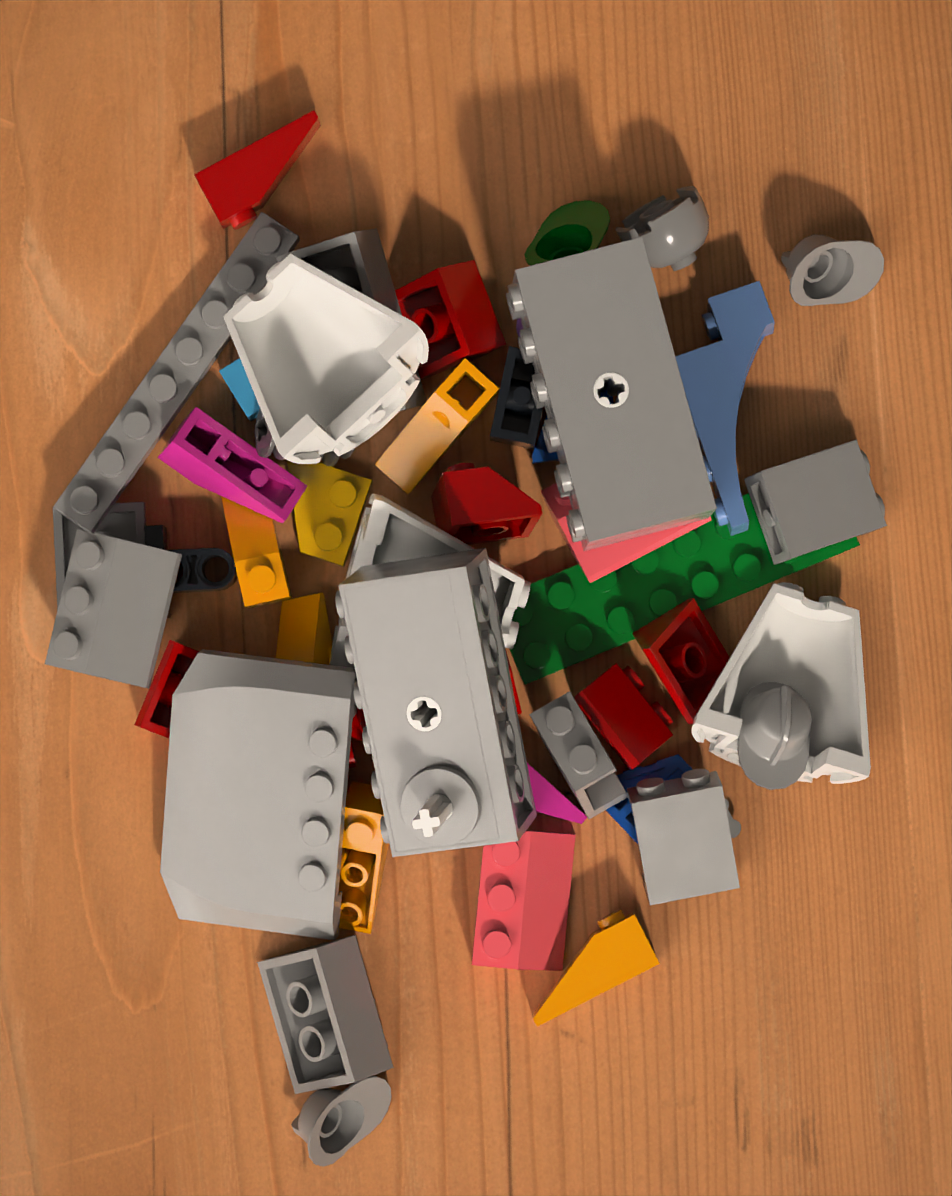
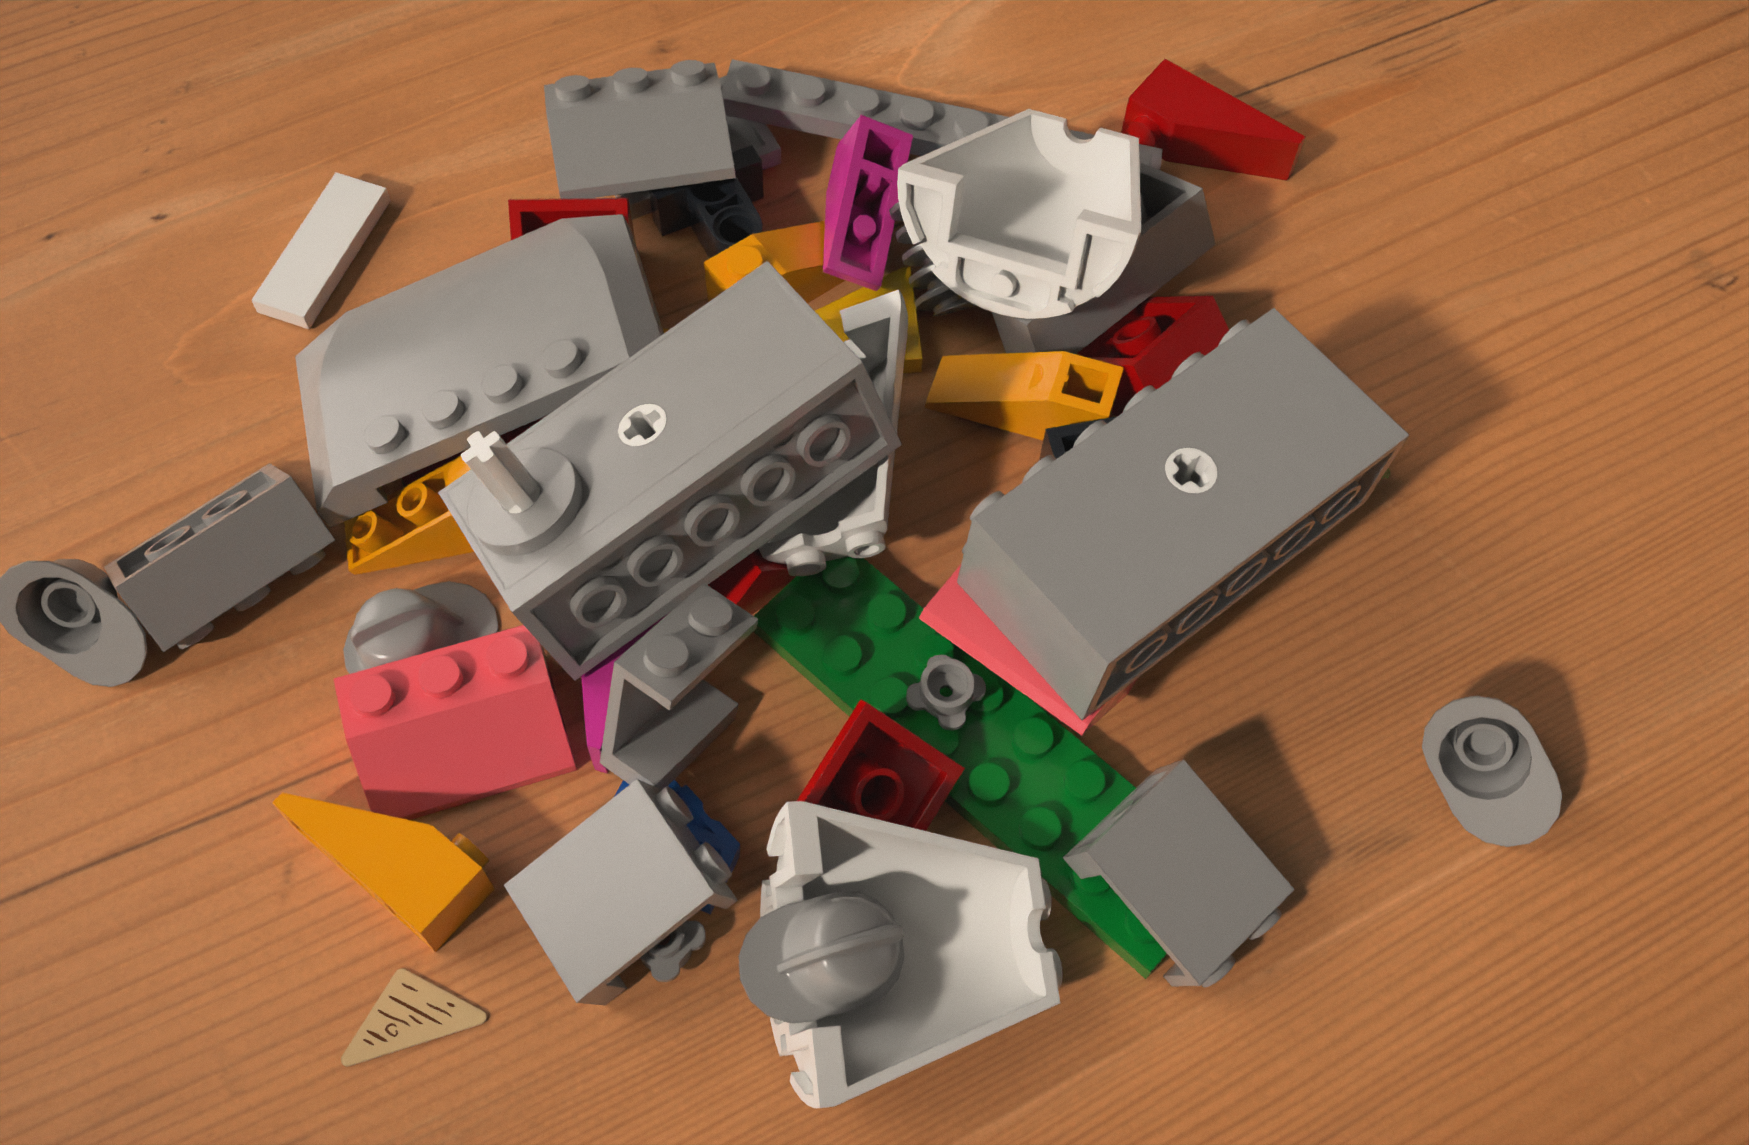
camera: 65 degrees right, 25 degrees down
(82, 871) = (321, 250): none -> white tile
(438, 903) = (416, 621): none -> light grey piece
(482, 506) = (948, 458): red slope -> none
(624, 715) = (758, 740): red slope -> none
(640, 573) = (947, 673): none -> light grey plate
(669, 228) = (1413, 544): light grey cylinder -> none
(690, 988) = (409, 1015): none -> tan sticker
(714, 387) = (1252, 681): medium blue arch -> none

